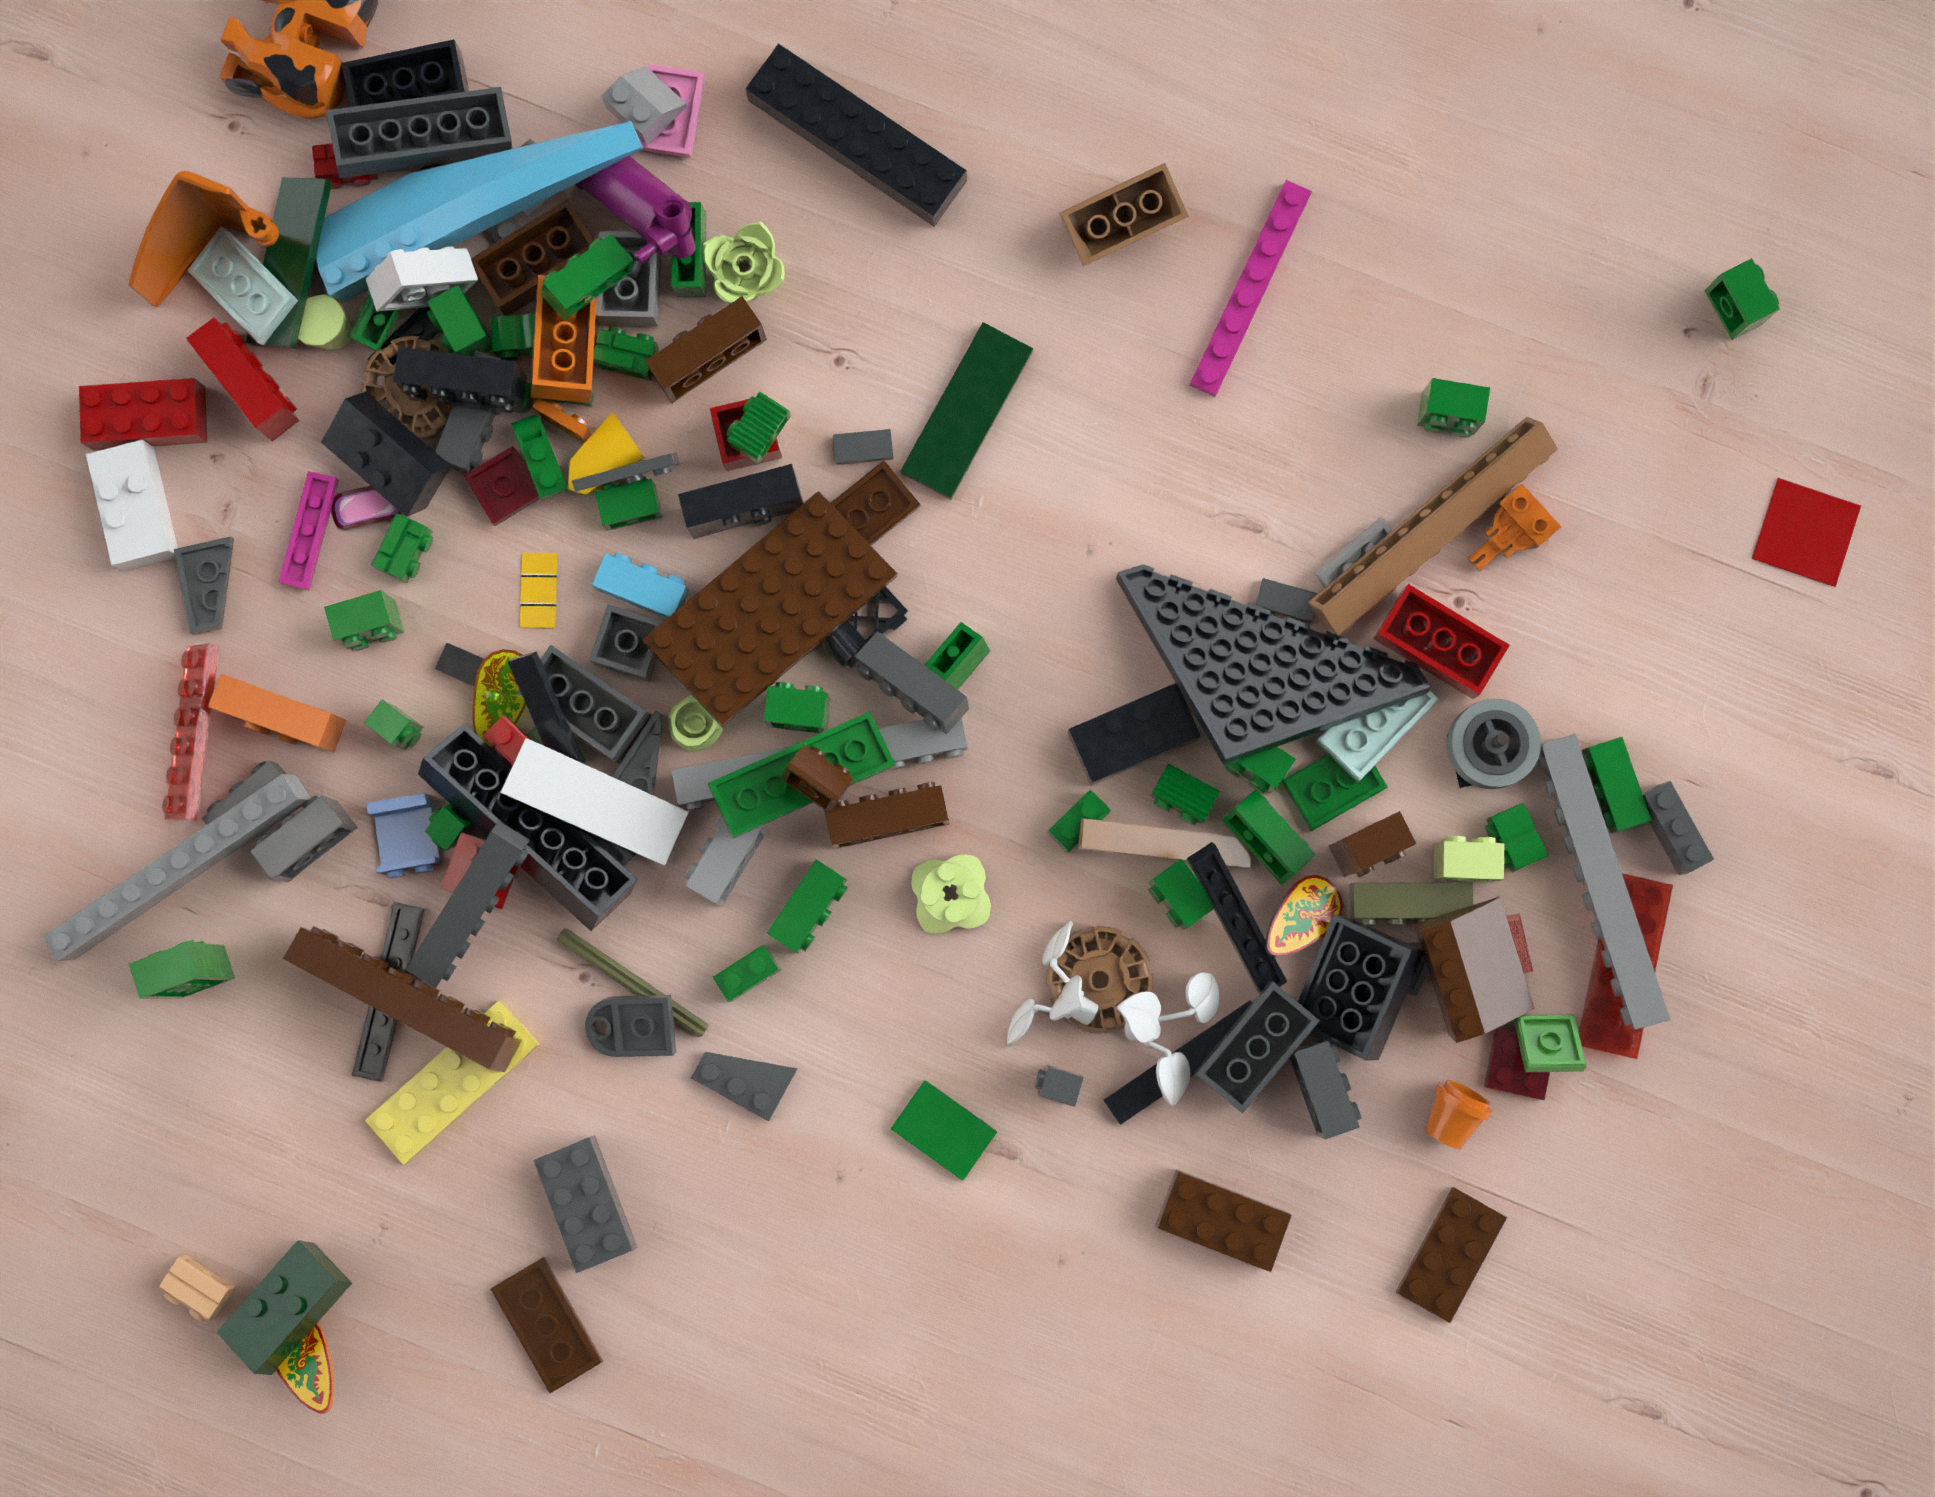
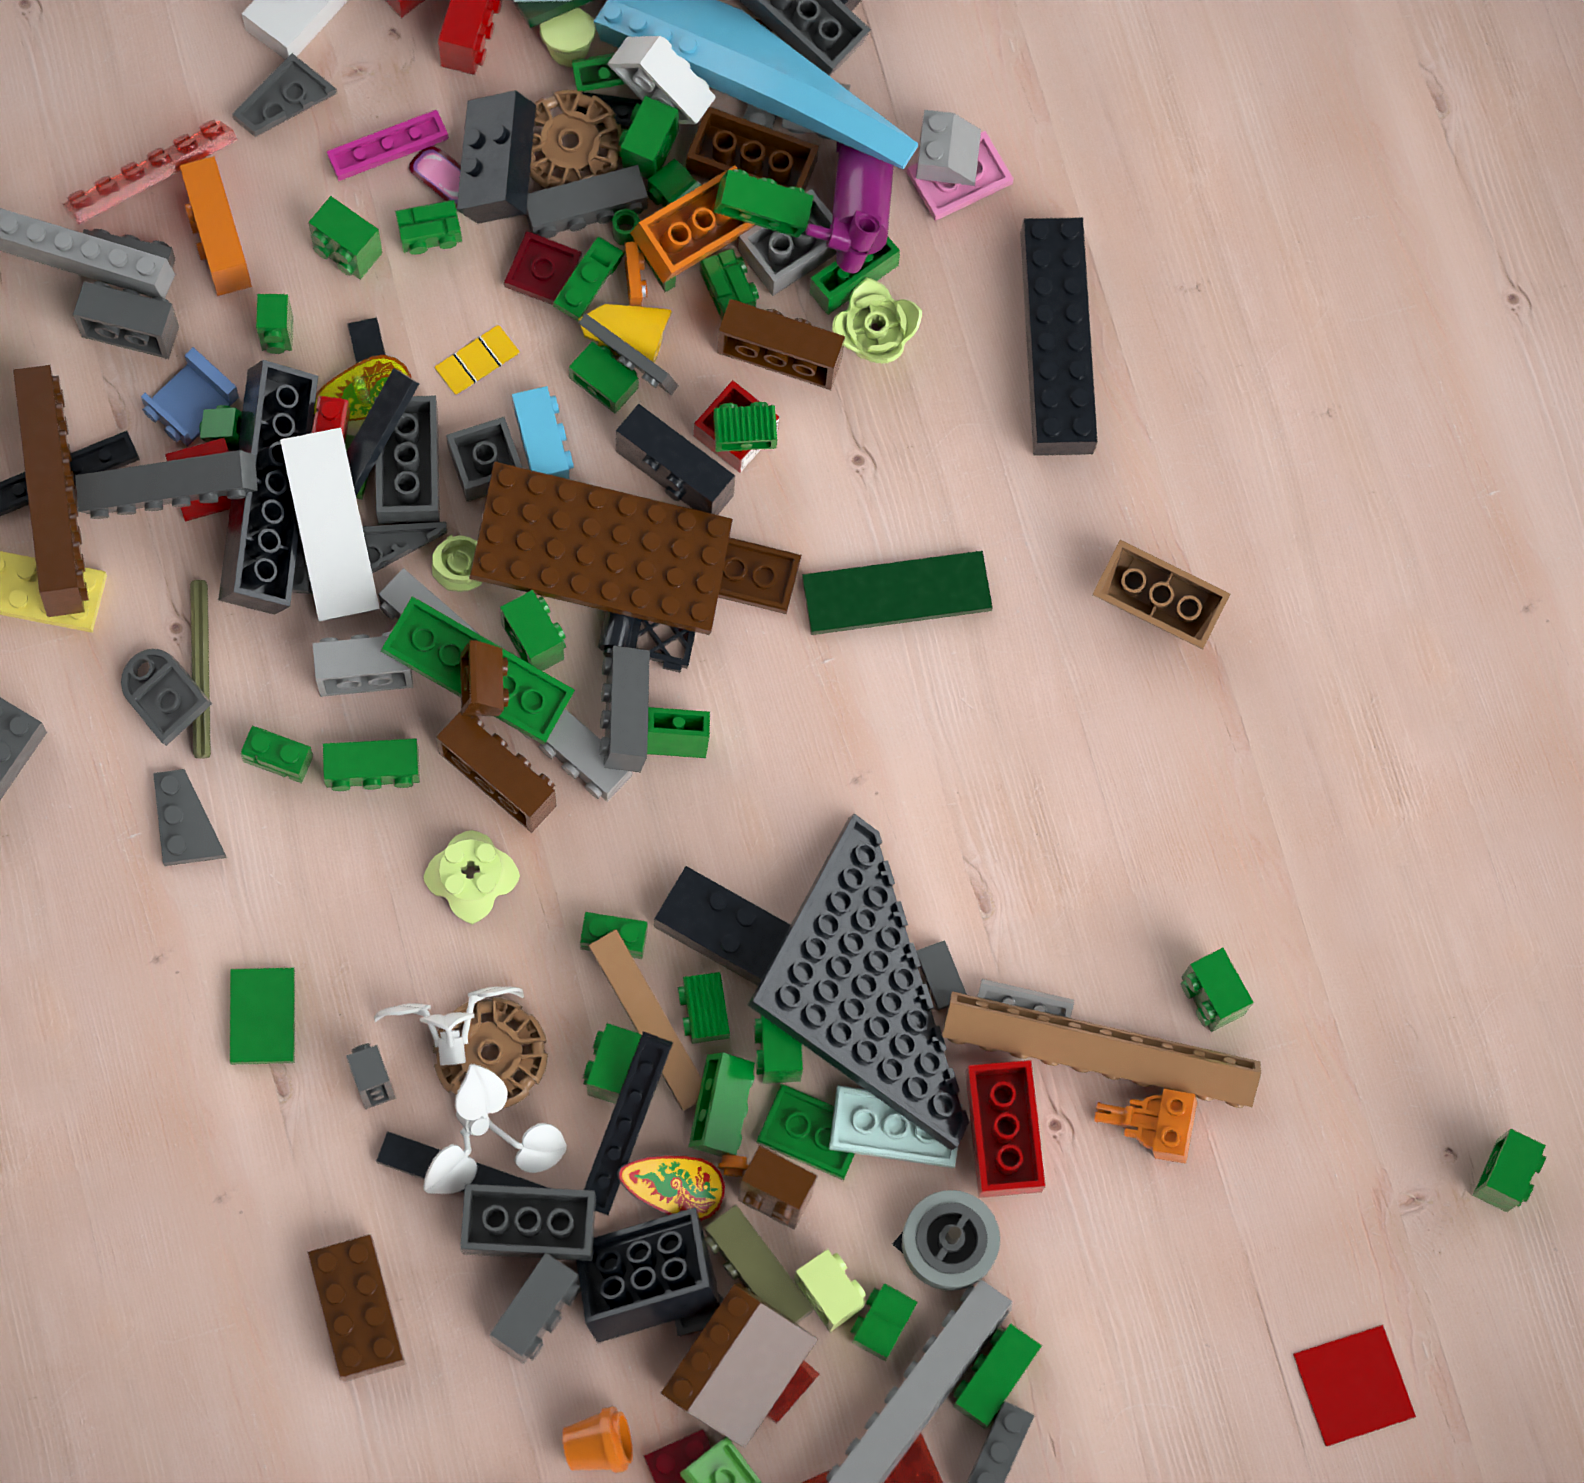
camera: 40 degrees right, 10 degrees down
(460, 379) = (601, 167): black brick -> none
(863, 446) = (800, 530): dark grey tile -> none
(1250, 288) = (1187, 750): dark pink plate -> none
(1320, 861) = (733, 1165): none -> orange plate

